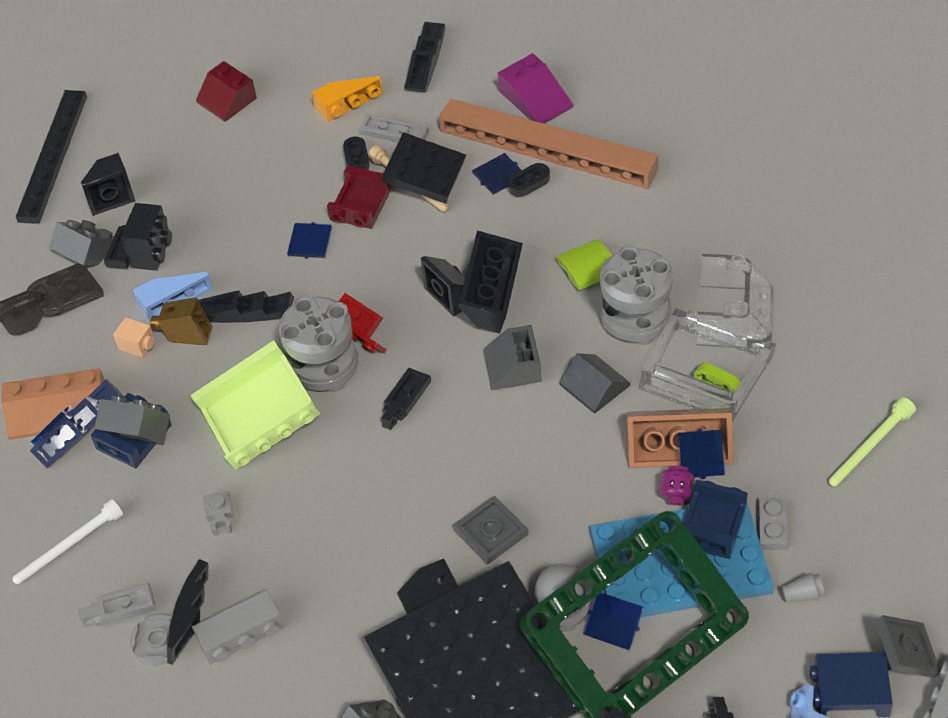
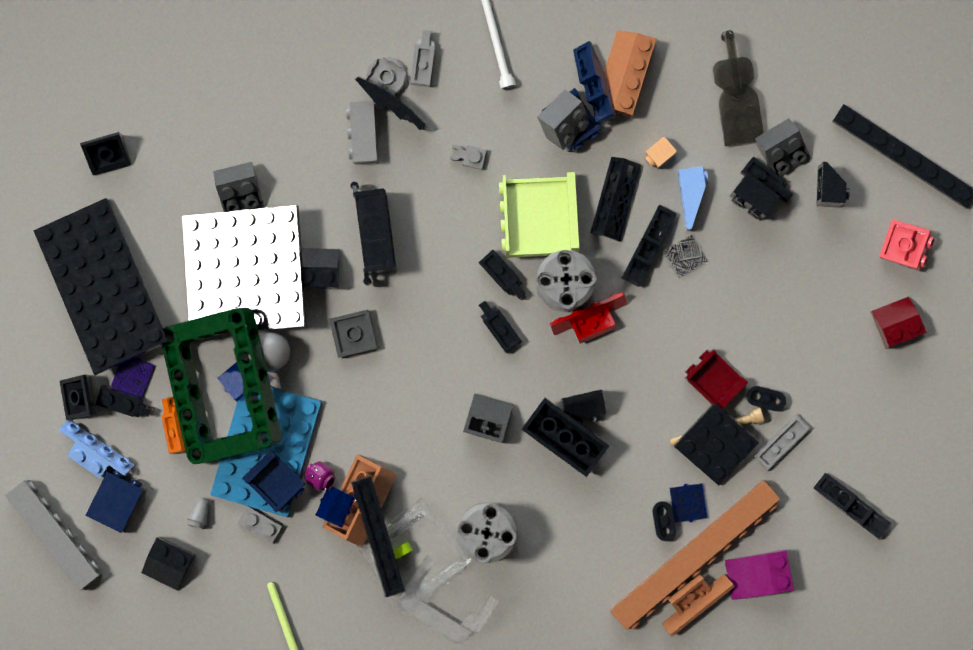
camera: 110 degrees right, 35 degrees up
(66, 411) = (598, 63): clear blue piece -> none
(143, 114) = (907, 245): none -> coral plate
(183, 322) = (649, 195): pearl gold torso -> none
(202, 358) = (612, 197): none -> black fence
(241, 276) = (685, 256): none -> clear piece
(309, 240) = (696, 324): clear blue piece -> none
(342, 419) = (502, 274): none -> black hinge
(343, 96) = (839, 413): light orange slope -> none
(356, 553) = (374, 231): none -> black container
(584, 263) = (552, 521): lime slope -> none
(593, 381) = (441, 469): black slope -> none
(595, 123) = (694, 600): none -> nougat bracket
(705, 385) = (378, 536): none -> black plate
(718, 665) = (172, 426): none -> orange hinge
(882, 590) = (167, 563): none -> black slope
(907, 646) = (120, 551): dark grey plate -> none

